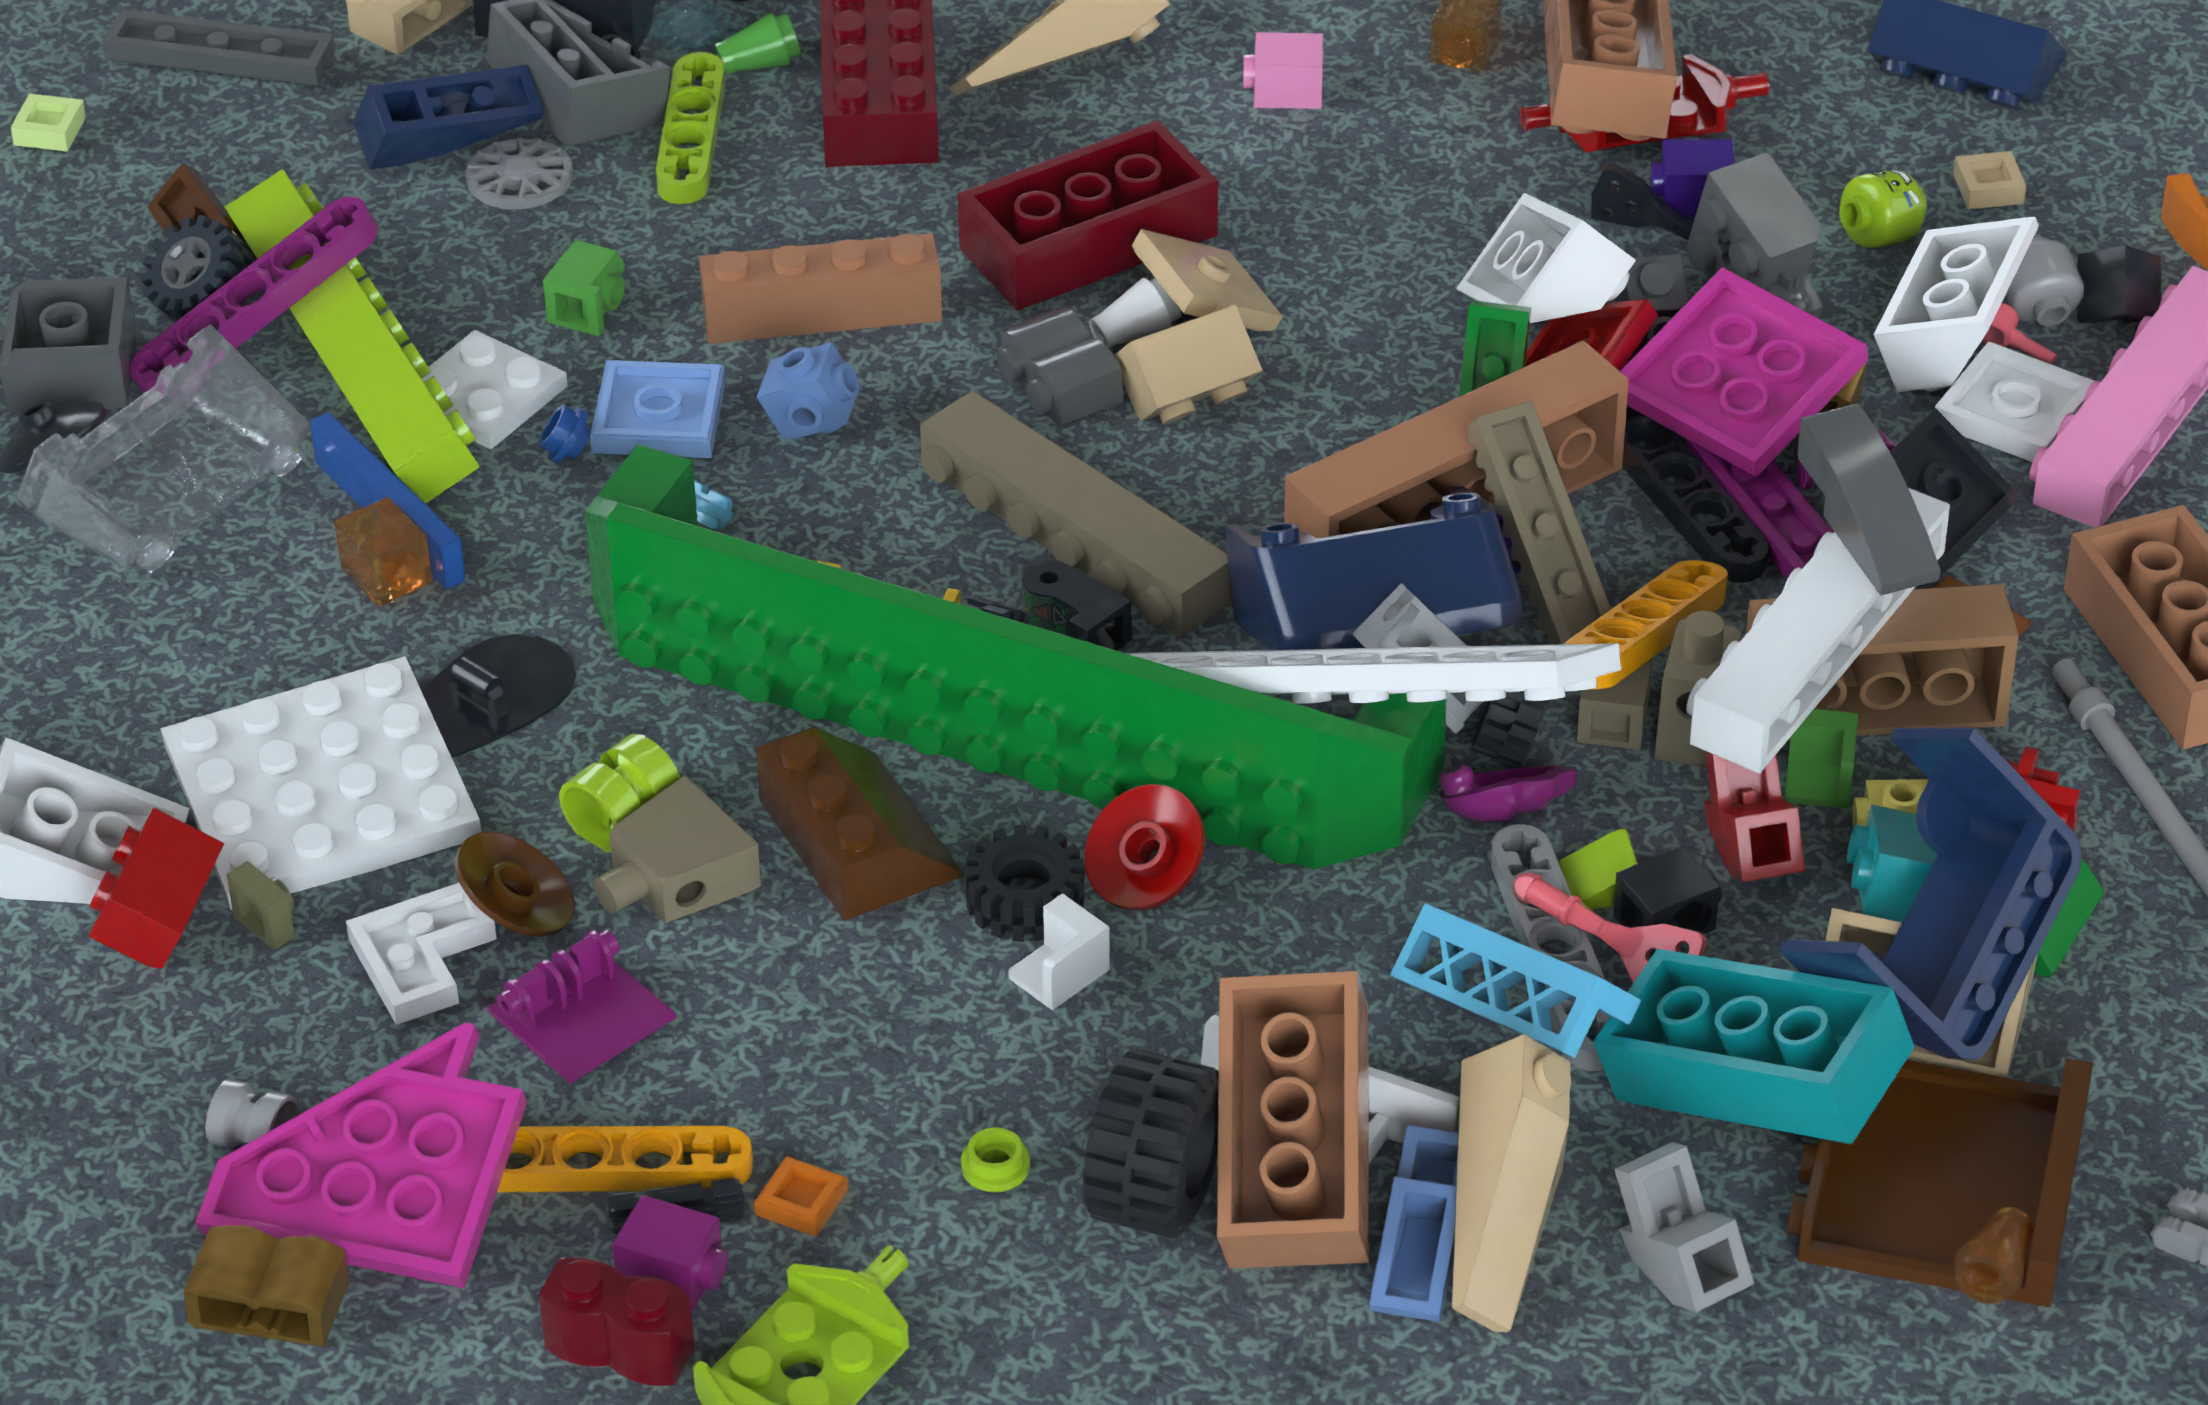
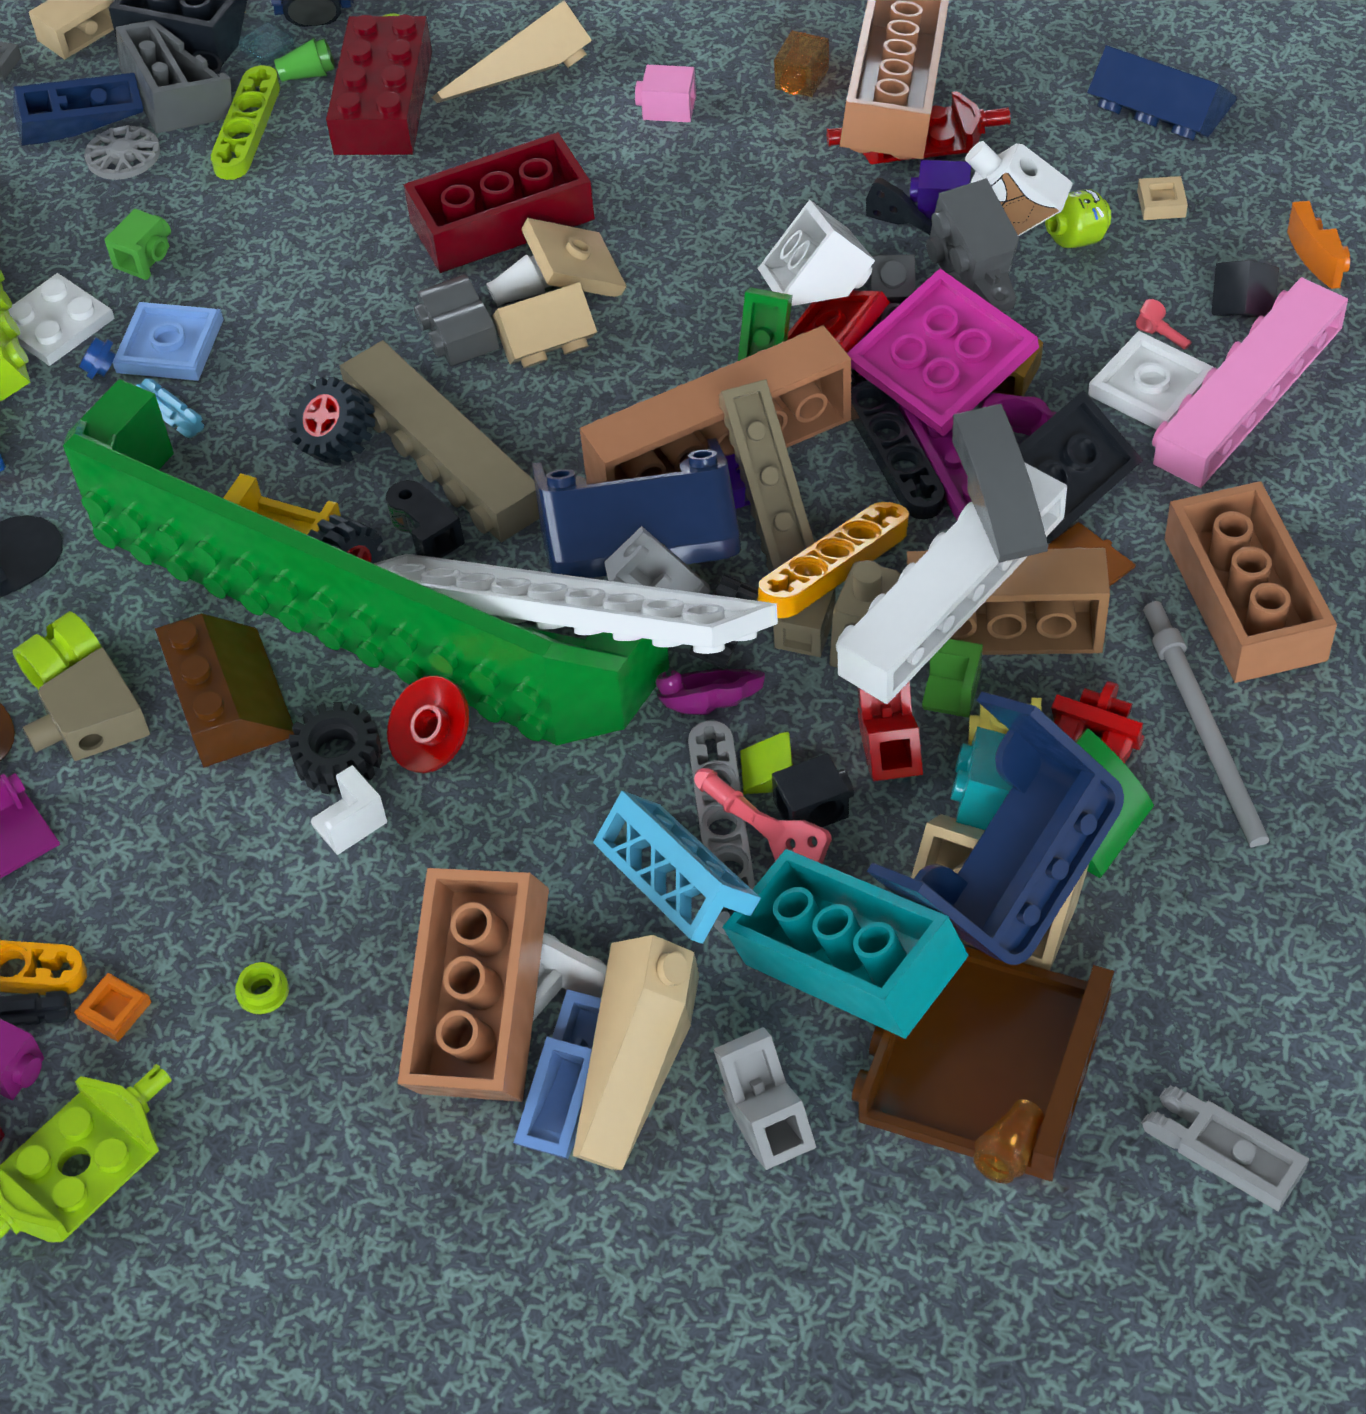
camera: 10 degrees right, 10 degrees up
(809, 391) = (271, 334): medium blue brick -> none
(820, 288) = (299, 251): nougat brick -> none
(911, 477) = (327, 404): none -> black wheel
(1152, 1143) = (361, 996): black tyre -> none
(1814, 157) = (1022, 182): none -> white torso
(1949, 300) = (1110, 297): white slope -> none
(2045, 283) = (1186, 282): light grey head -> none

